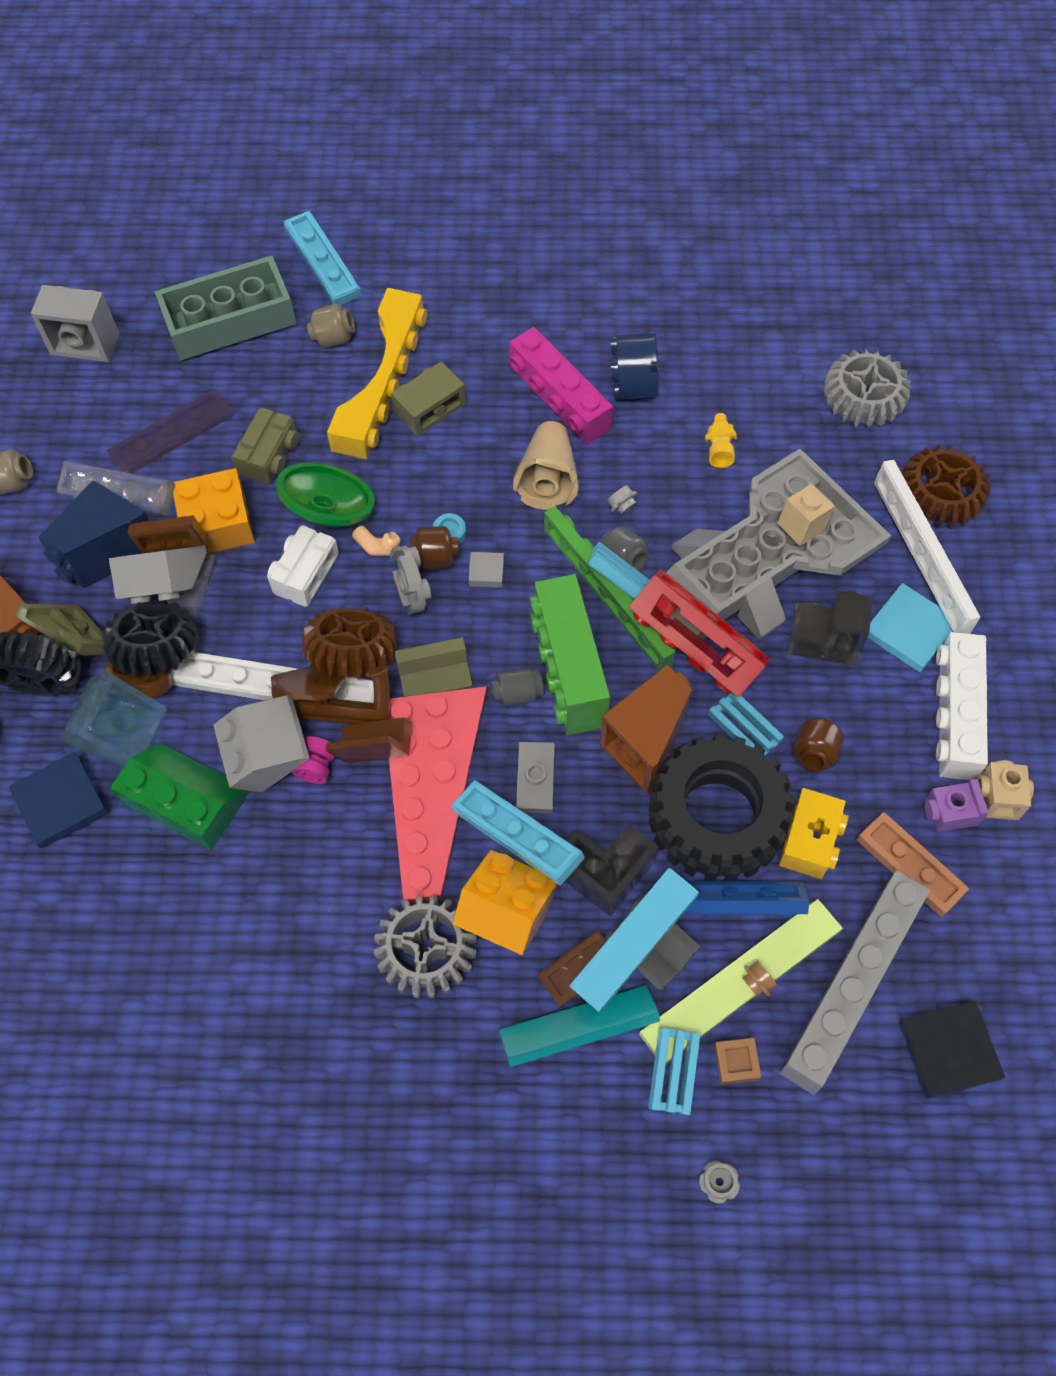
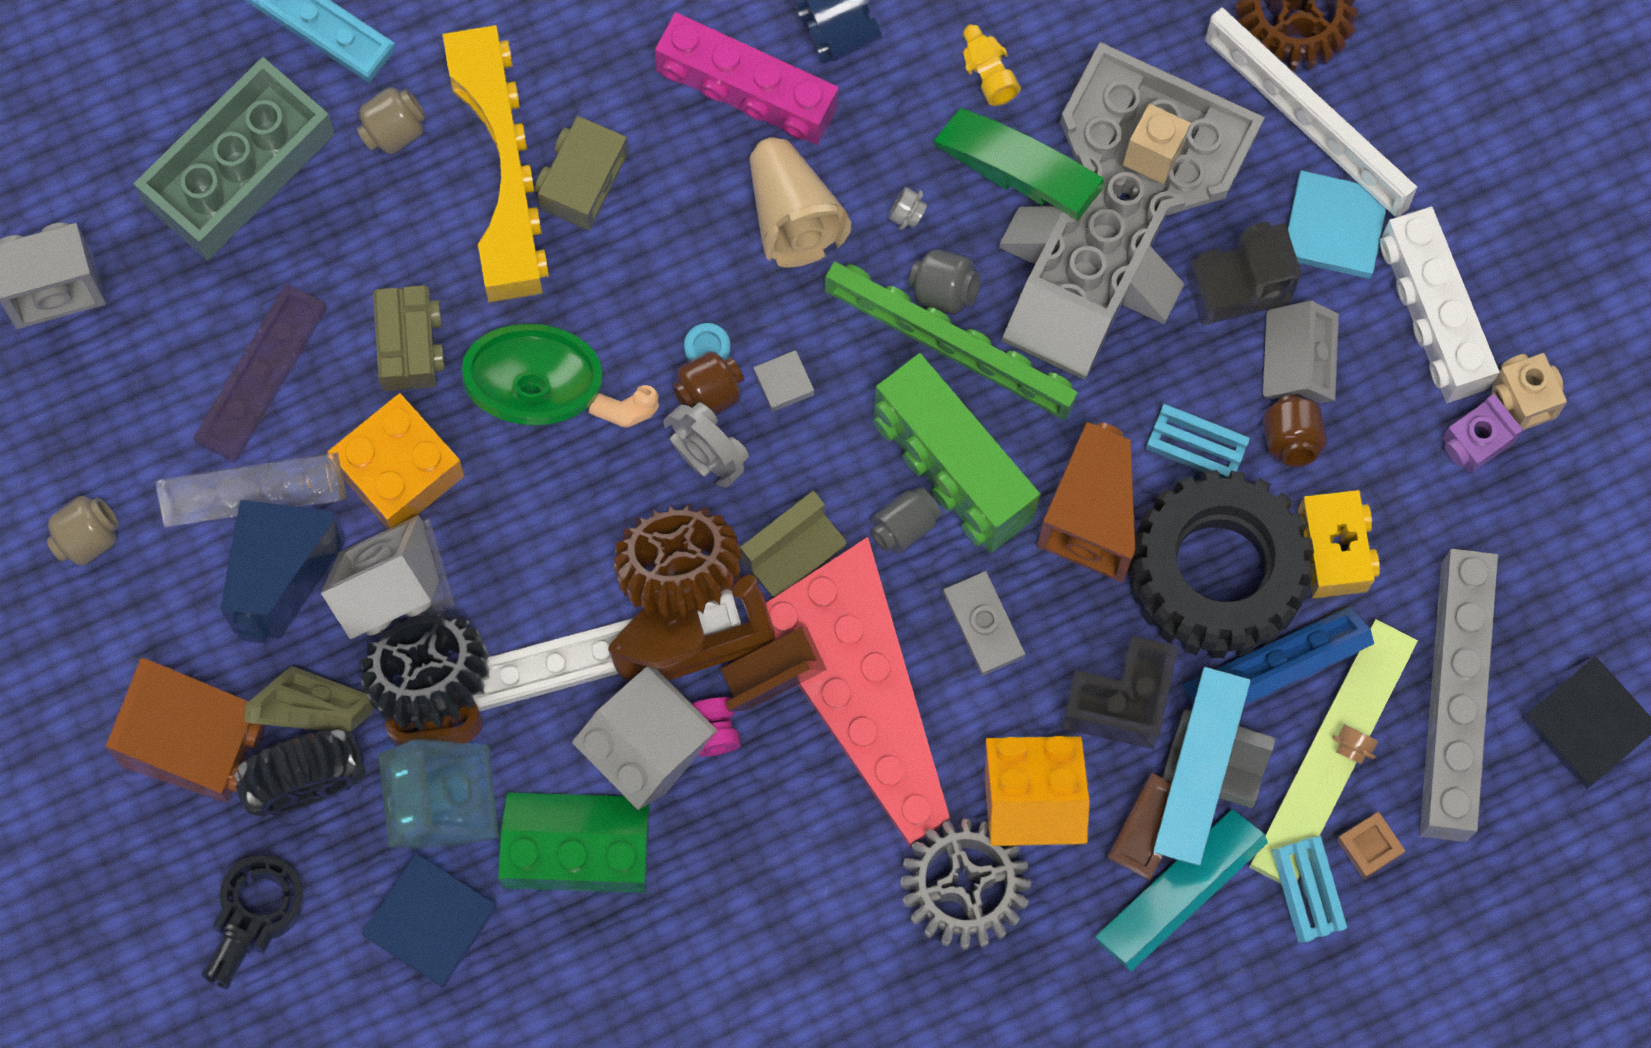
camera: 30 degrees left, 10 degrees up
(167, 534) = (375, 527): reddish brown plate -> none
(302, 565) = (553, 482): white brick -> none
(518, 832) = (1007, 704): medium azure tile -> none
(617, 570) = (962, 318): medium azure tile -> none
(711, 498) = (1020, 162): none -> green slope
(730, 1185) = (1413, 970): light grey plate -> none
(739, 663) = (1034, 349): brick -> none
(849, 696) = (1301, 352): none -> light grey panel
(903, 853) = (1461, 526): nougat plate -> none

